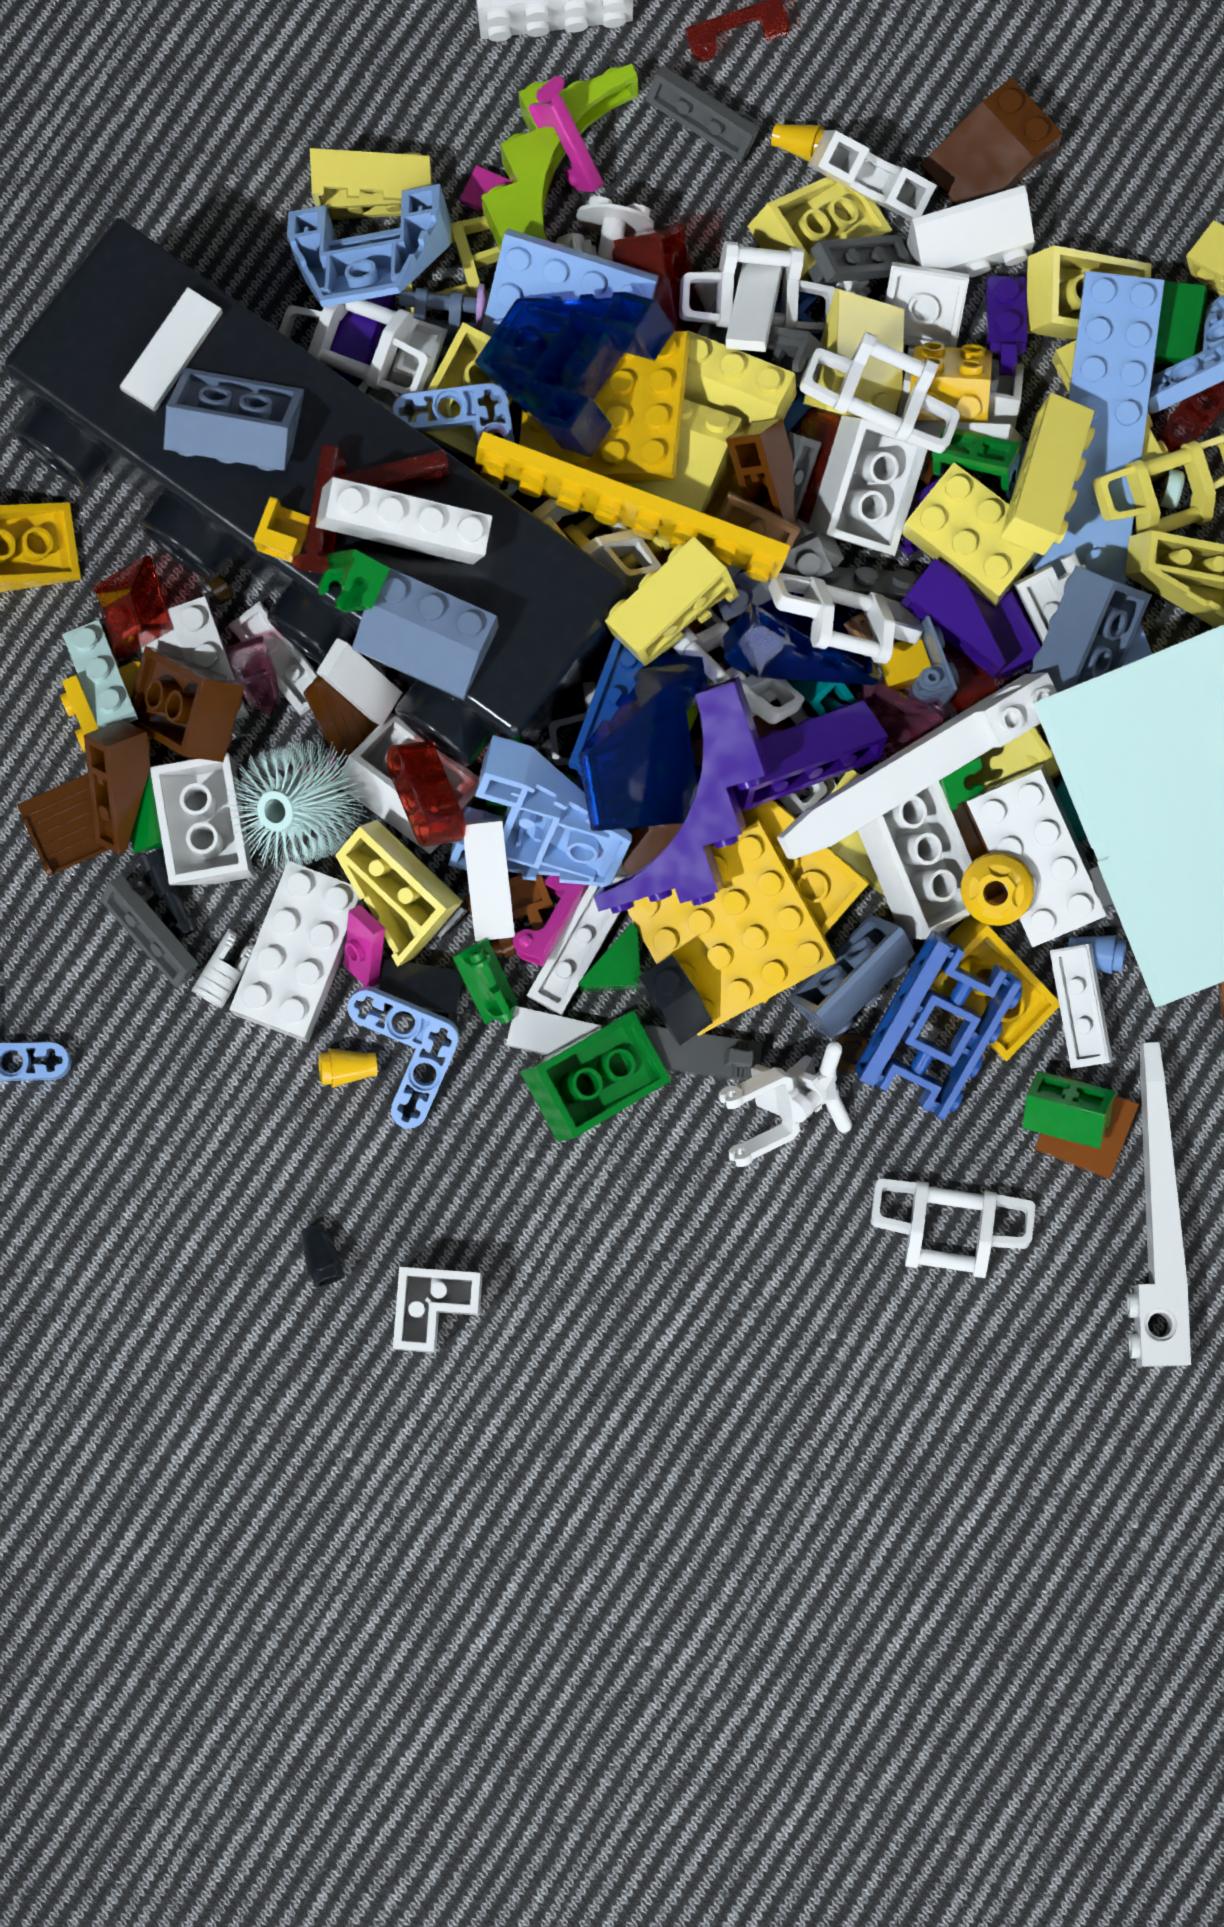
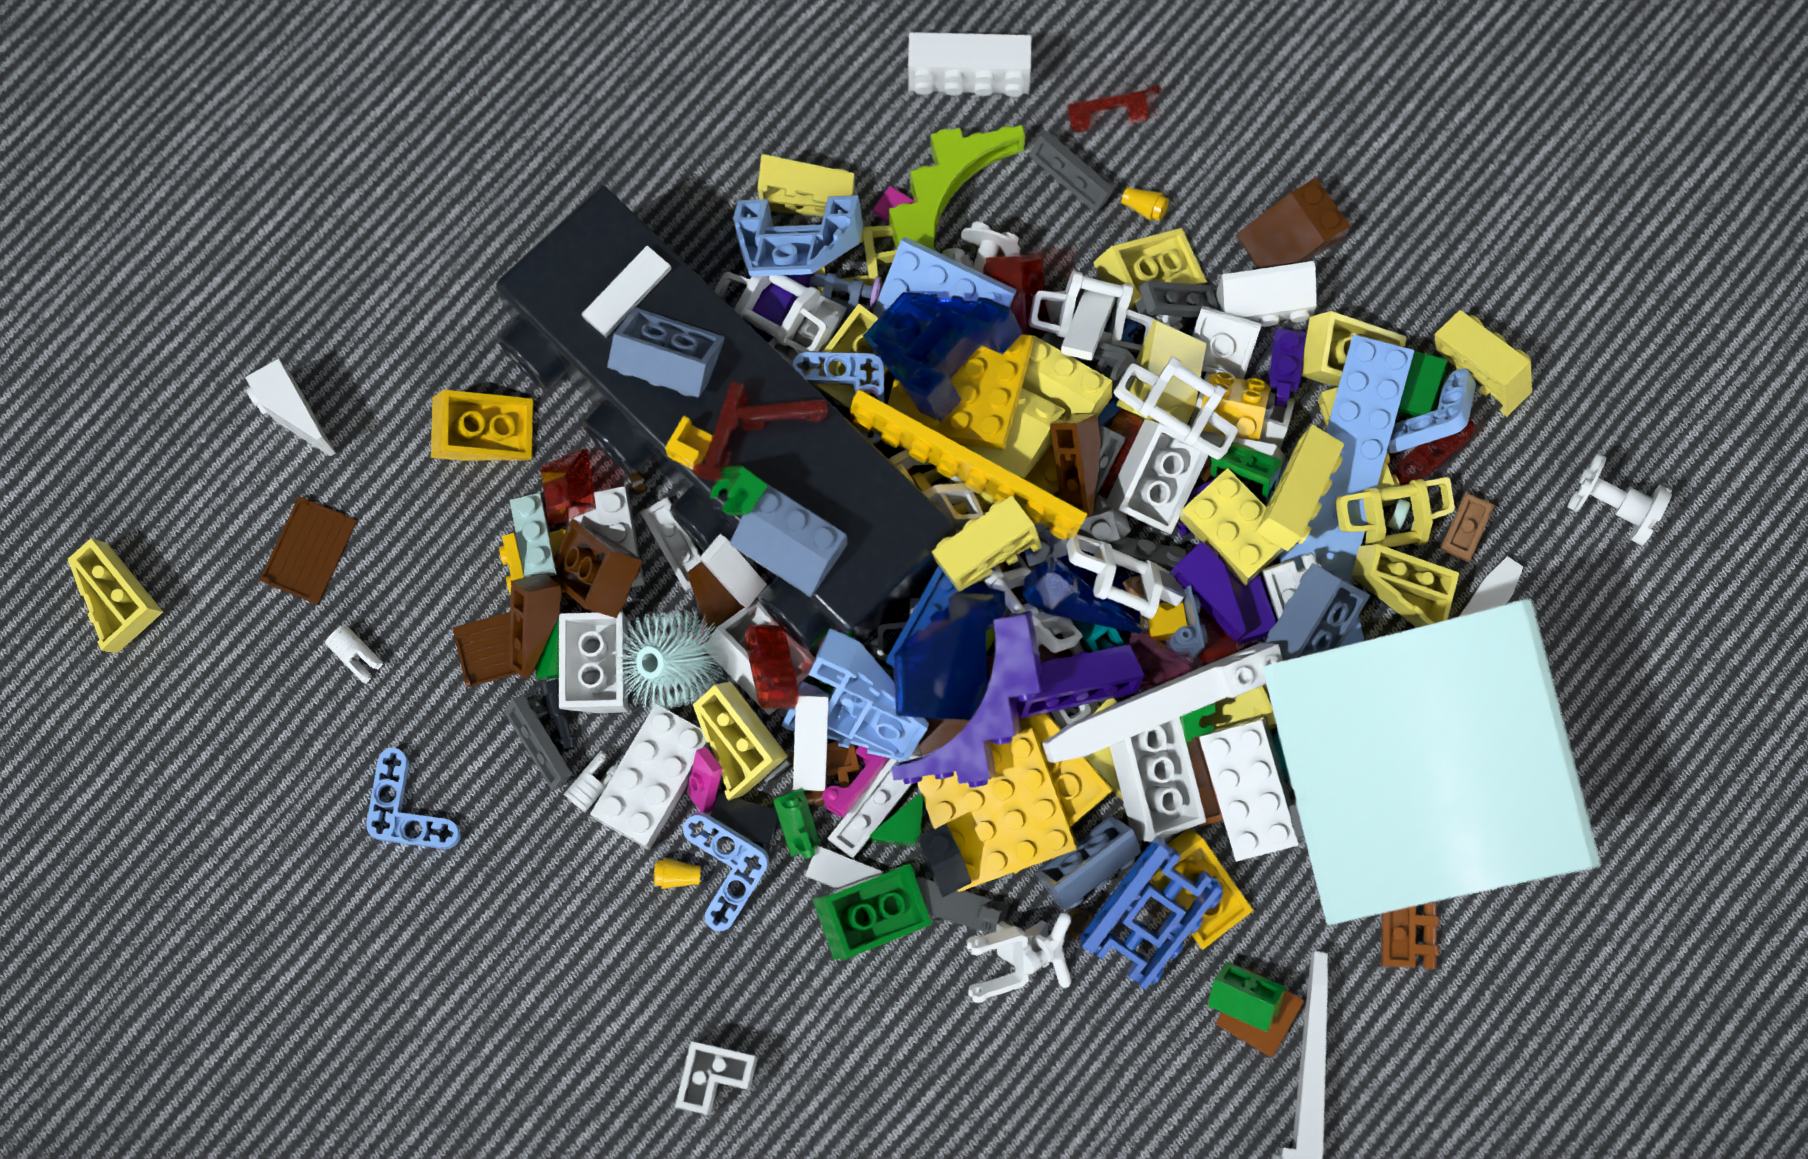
camera: 10 degrees right, 5 degrees down
(256, 671) = (654, 551): clear pink plate -> none
(321, 1257) = (631, 1023): black cone -> none
(403, 521) = (784, 450): white brick -> none
(554, 113) = (955, 154): dark pink piece -> none
(757, 519) = (1067, 491): medium nougat plate -> none
(871, 176) = (1194, 237): white arch -> none
(985, 1202) = (1169, 1061): white bar -> none
(1001, 868) = (1221, 795): yellow piece -> none
(1081, 1005) = (1268, 914): white tile -> none
(1107, 951) = (1288, 873): medium blue cone -> none

